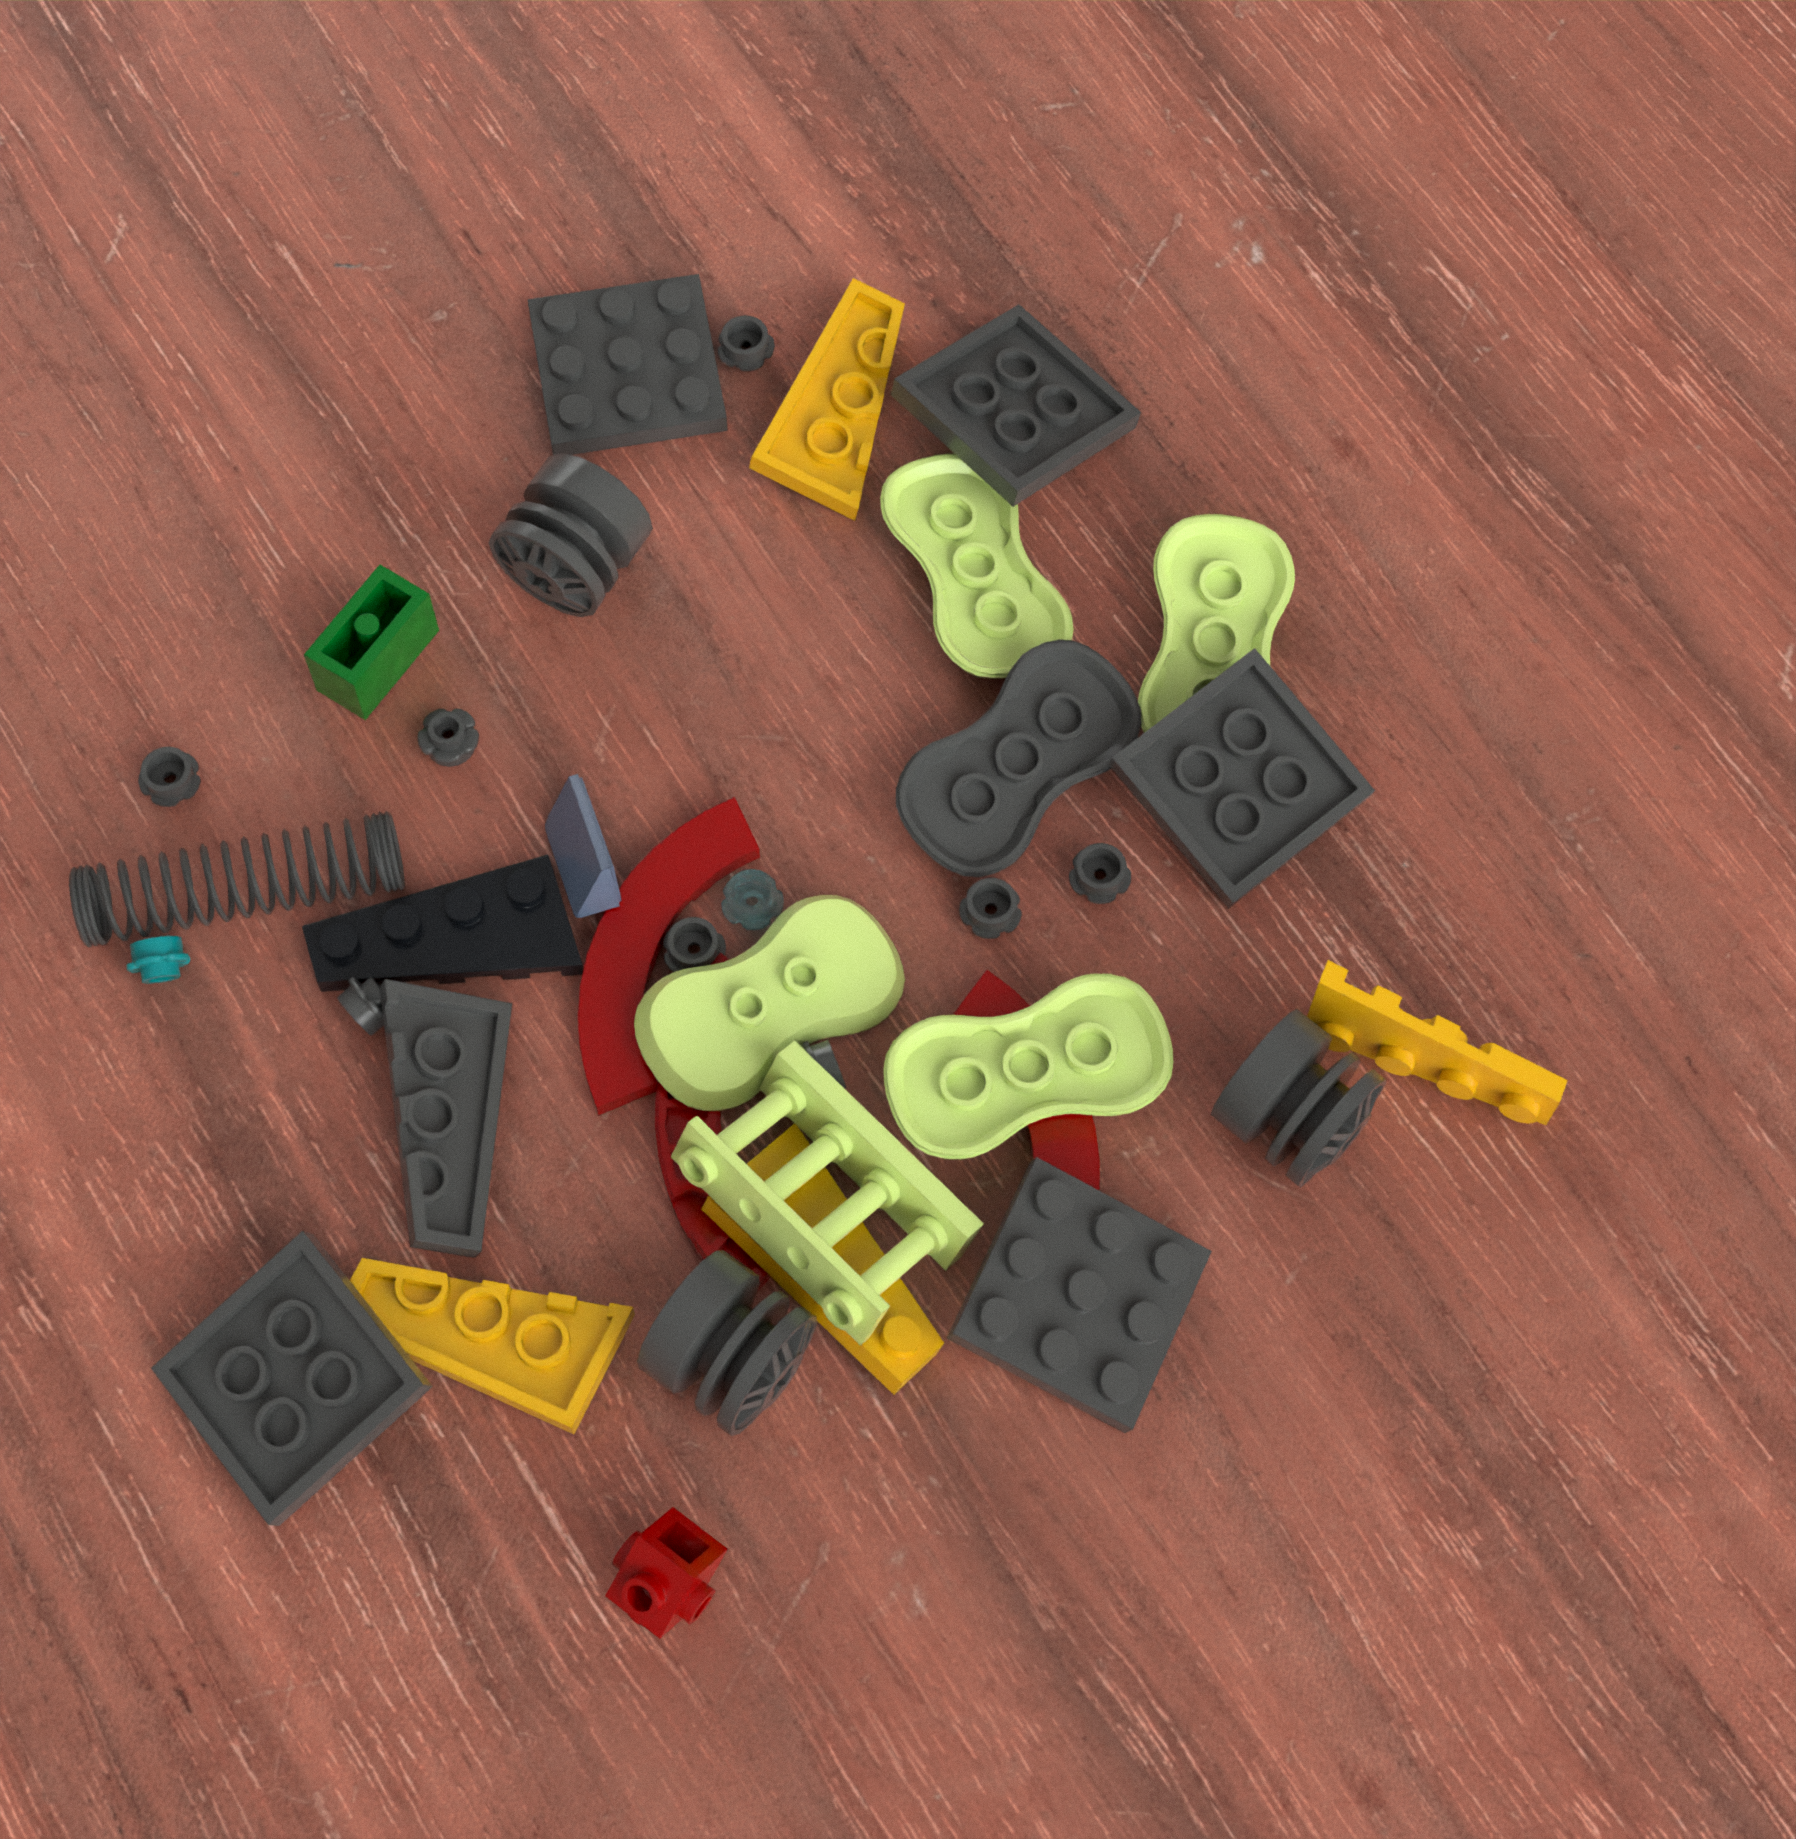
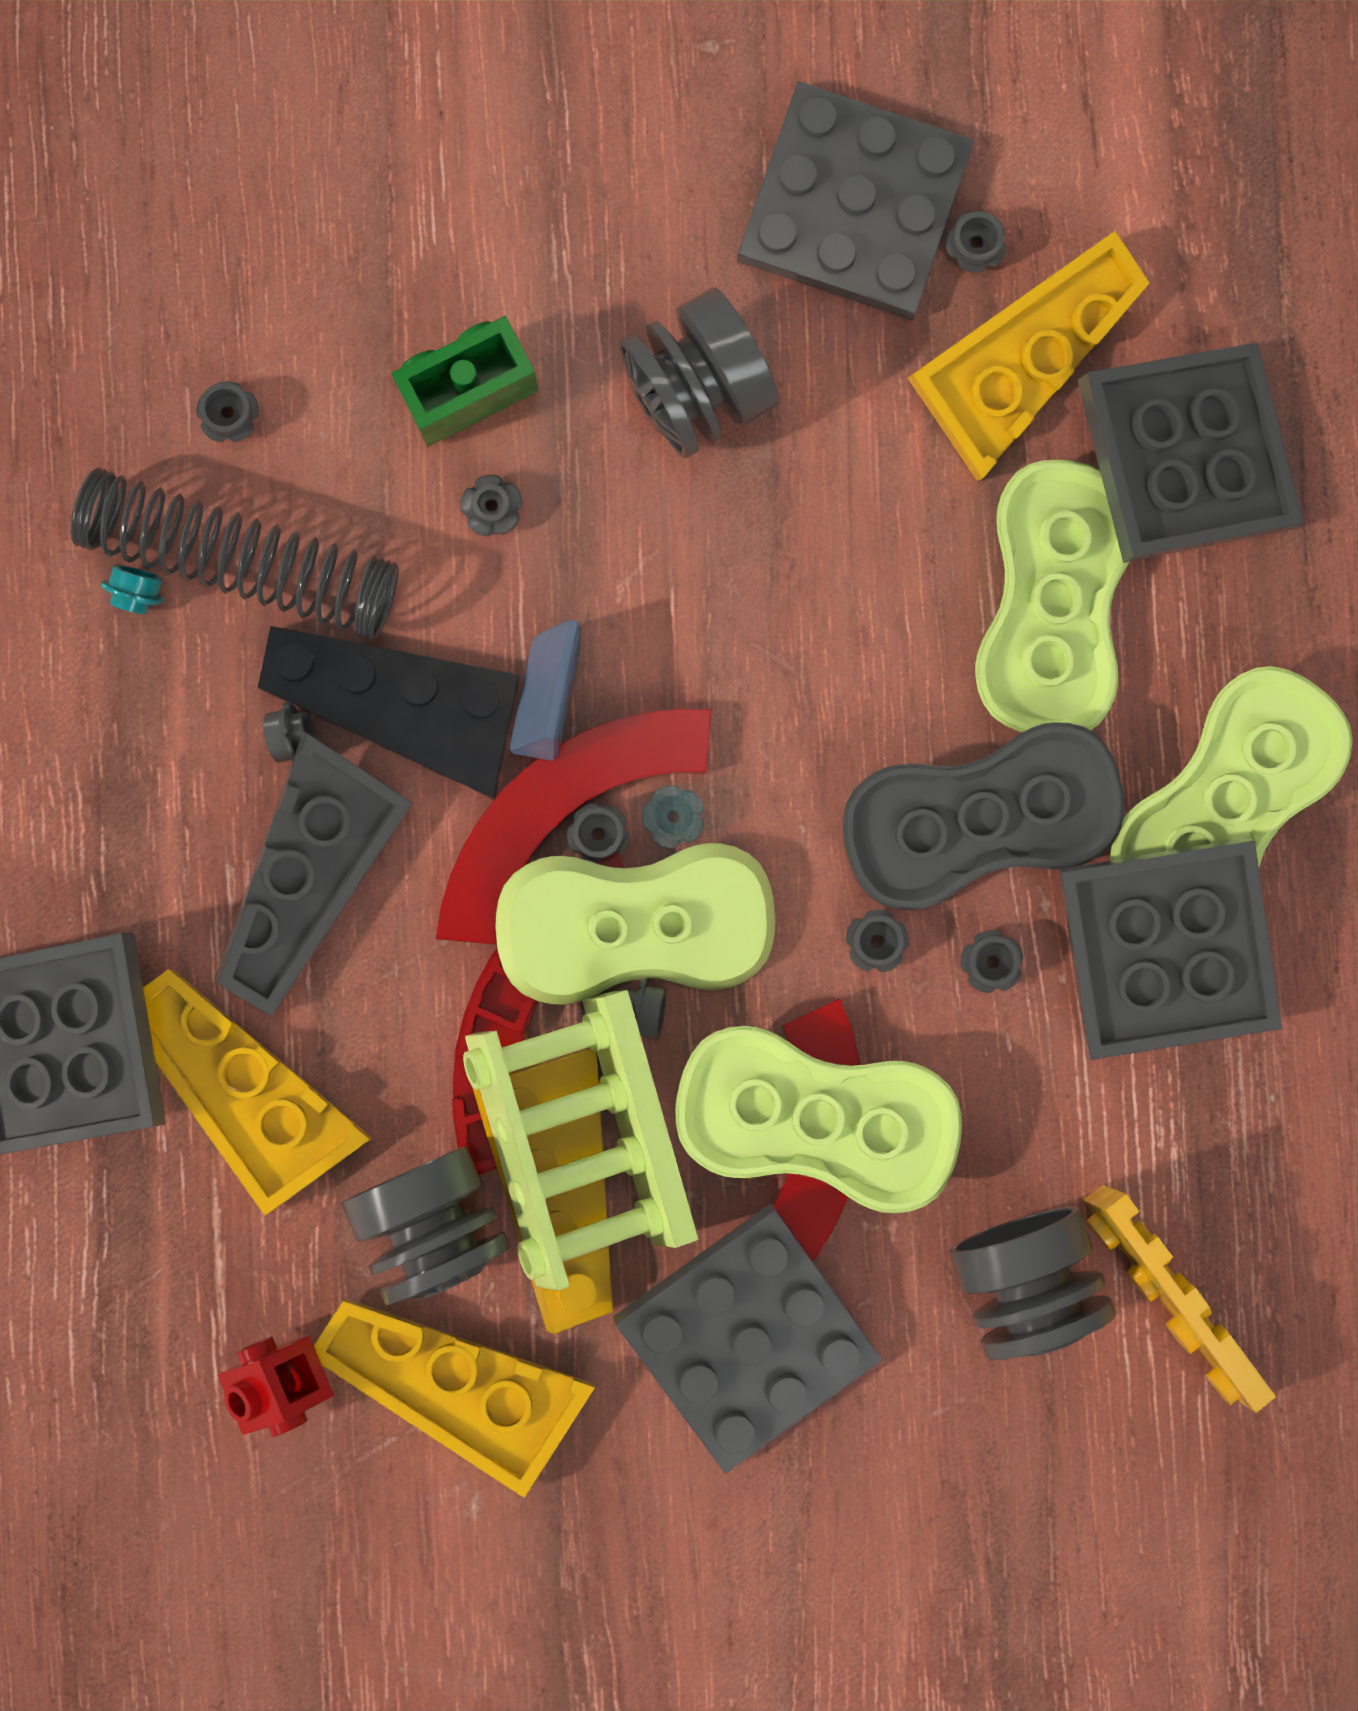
camera: 25 degrees right, 20 degrees up
(852, 1494) = (465, 1395): none -> yellow wing

